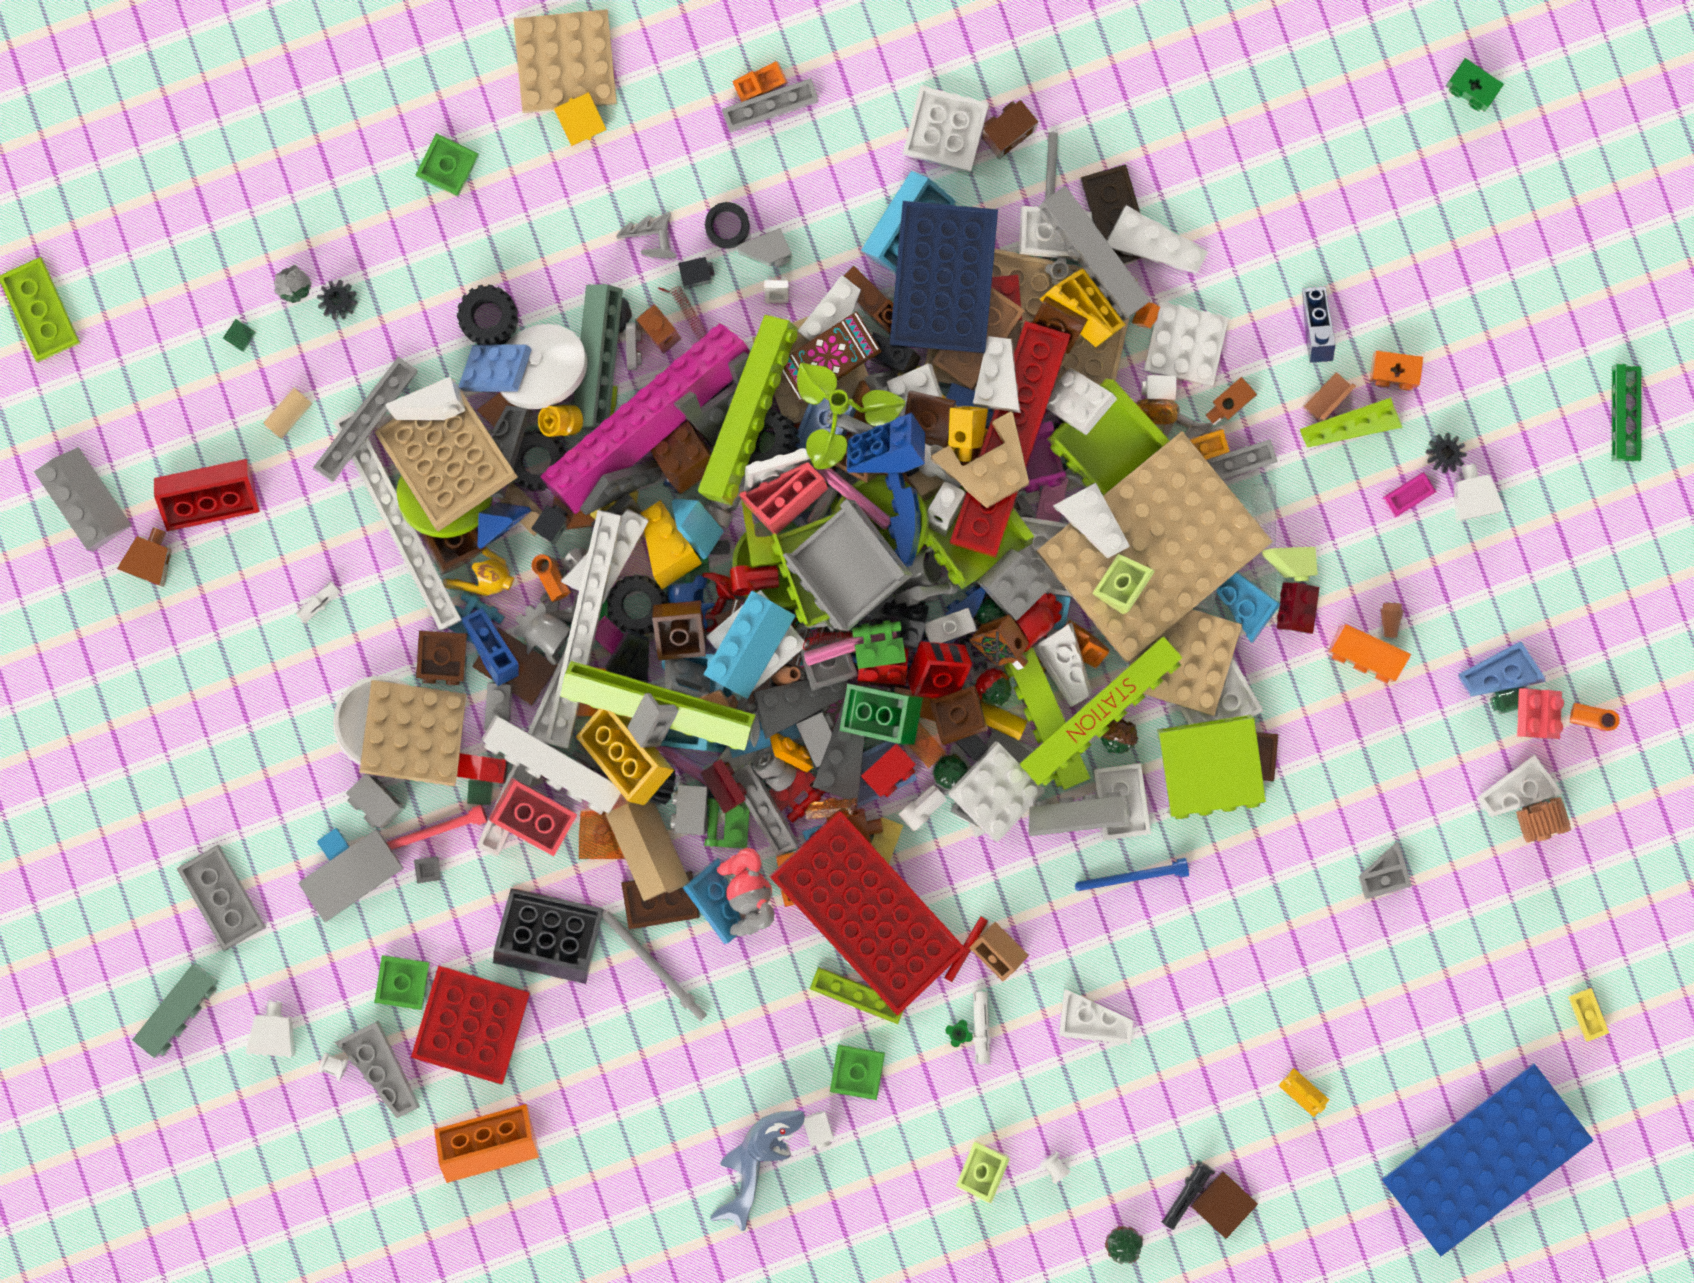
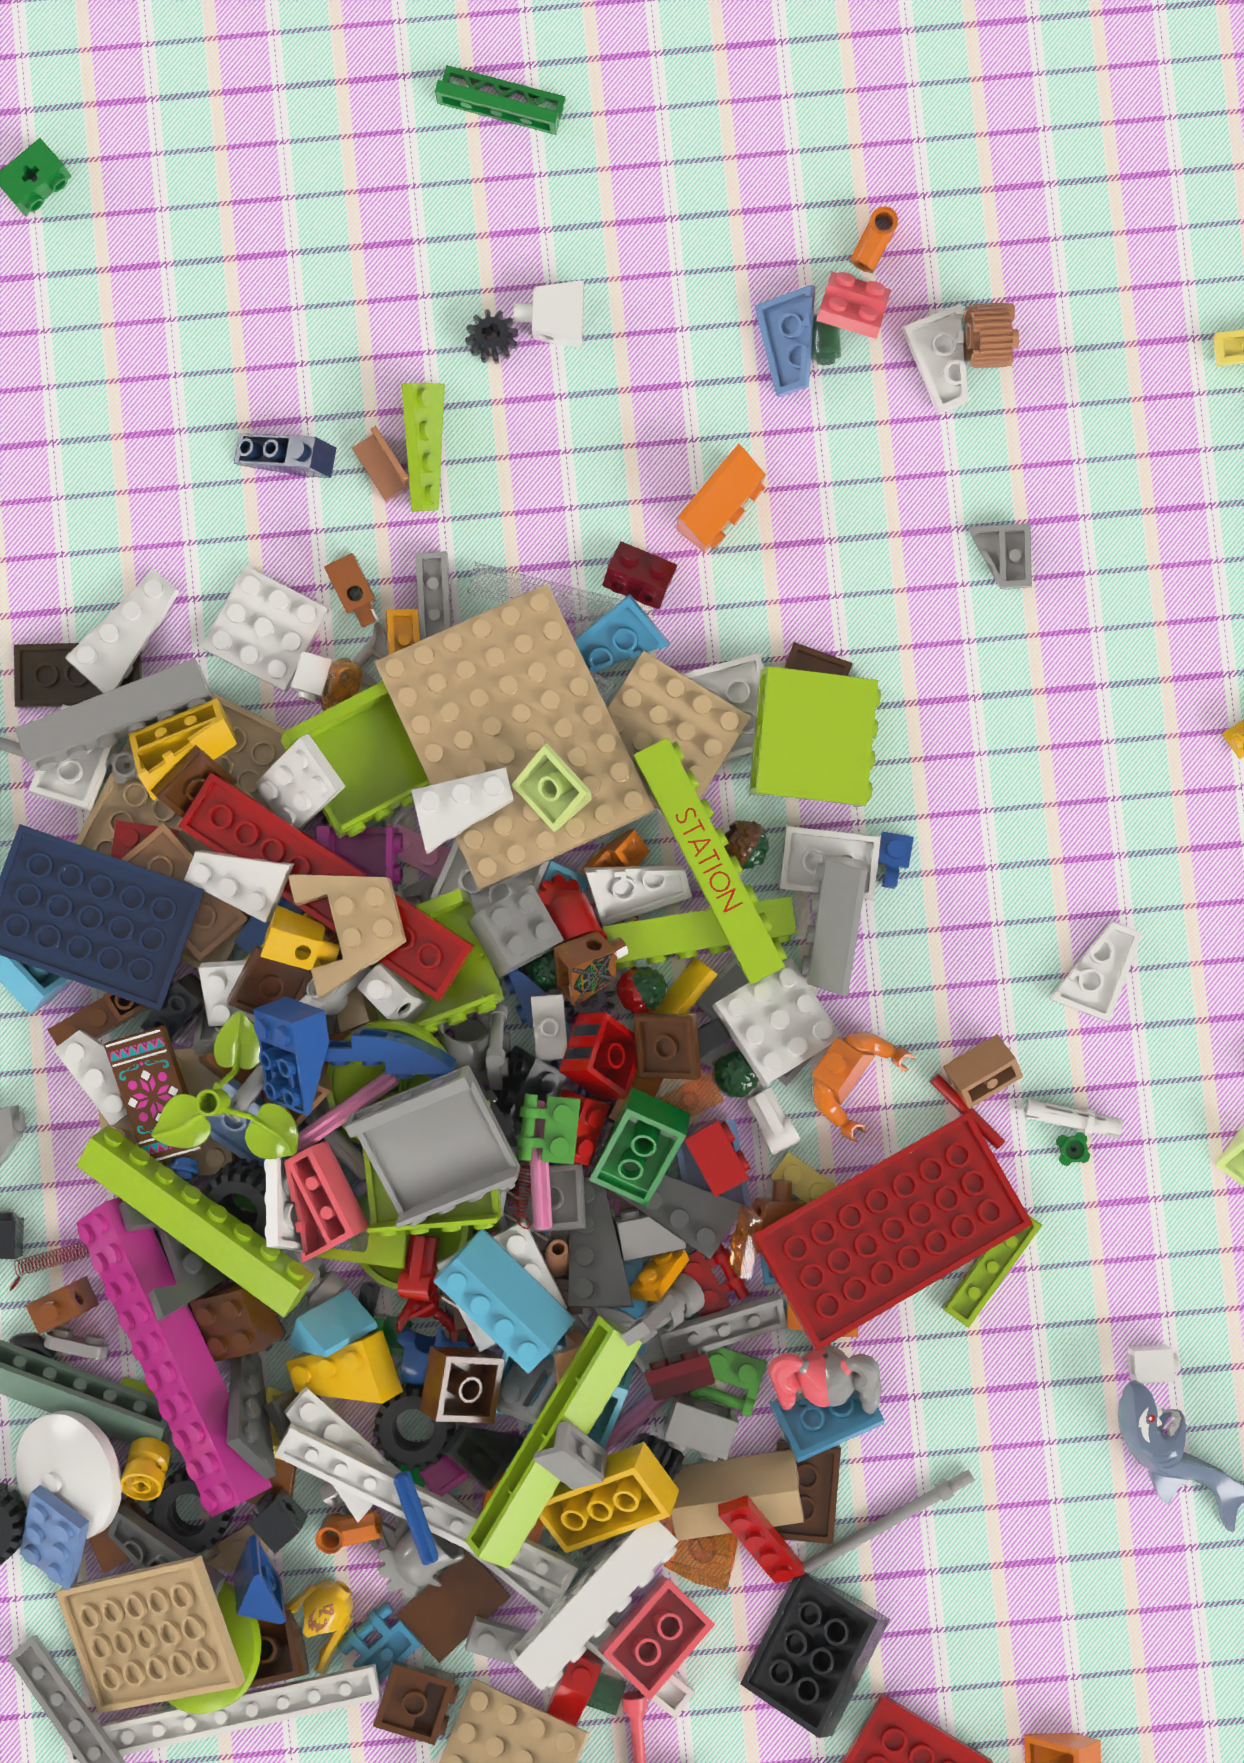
camera: 75 degrees left, 0 degrees up
(433, 402) = (77, 1632): white slope -> none
(491, 647) = (419, 1635): blue slope -> none
(578, 622) = (415, 1517): none -> blue axle
(622, 873) = (761, 1539): none -> red plate
(760, 753) = (652, 1319): none -> light grey plate
(776, 290) = (54, 1137): white tile -> none
(782, 392) = (184, 1167): none -> blue plate
(857, 1072) = (1090, 1293): bright green plate -> none
(973, 848) = (843, 1068): none -> orange torso
(1141, 848) = (894, 854): none -> blue plate
(1146, 315) = (215, 668): orange plate -> none
(1177, 868) = (932, 813): blue piece -> none
(1293, 562) = (580, 564): yellowish green slope -> none
(1391, 618) = (684, 460): nougat cone -> none
(1408, 365) = (369, 353): orange brick -> none
(1409, 494) = (532, 397): dark pink tile -> none

